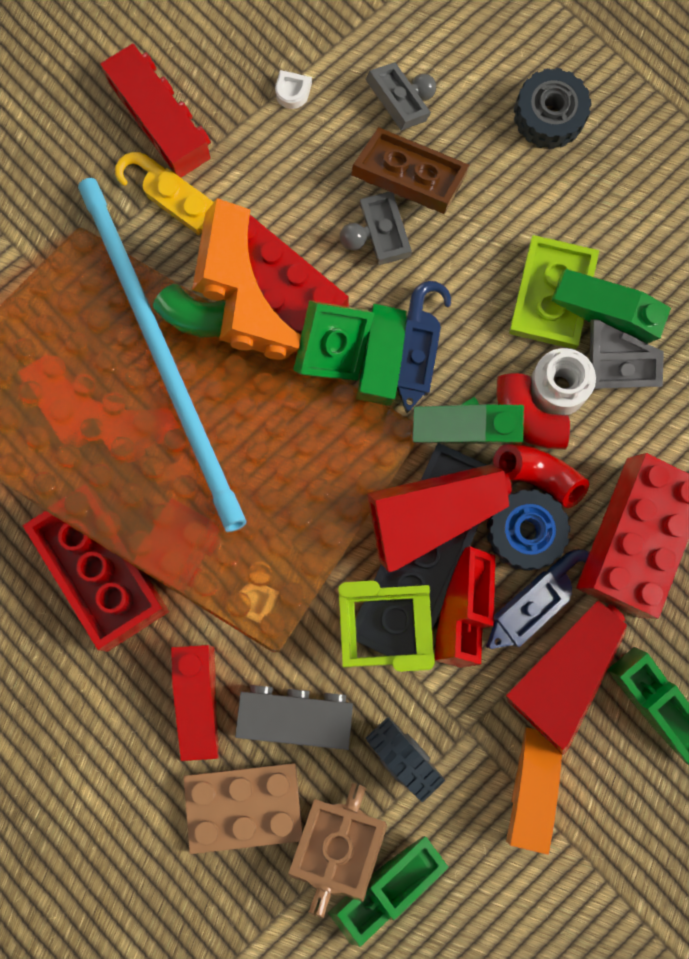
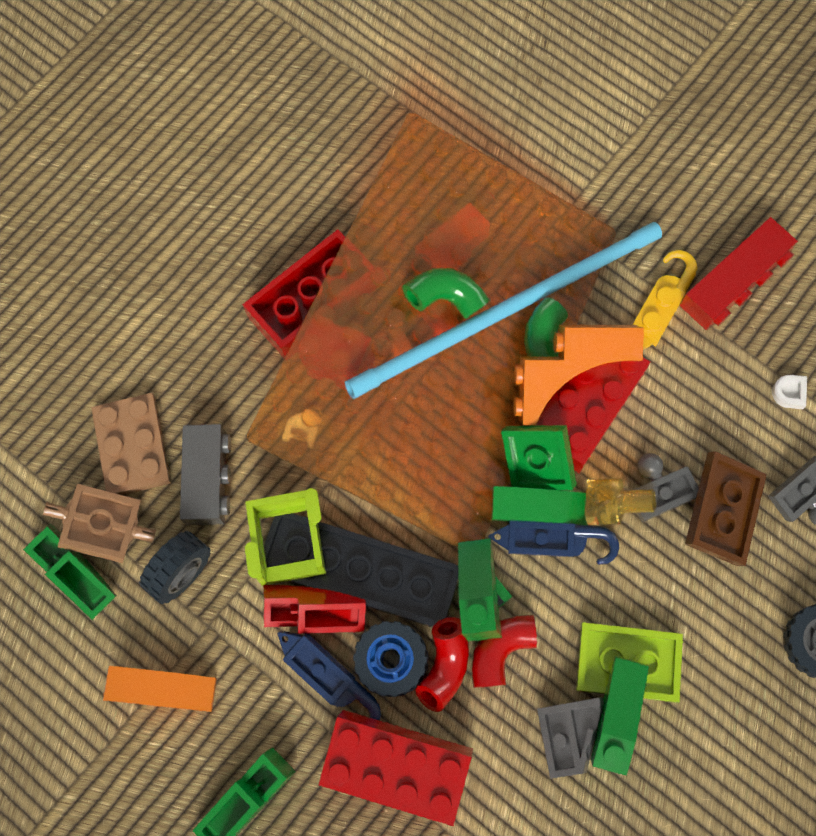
camera: 85 degrees right, 5 degrees down
(125, 402) = (445, 285): none -> green cylinder
(195, 701) = (214, 392): red slope -> none
(391, 266) = (621, 501): none -> clear yellow piece
(432, 511) = (392, 565): red slope -> none
(566, 679) = (259, 708): red slope -> none
(571, 366) = (556, 673): white piece -> none

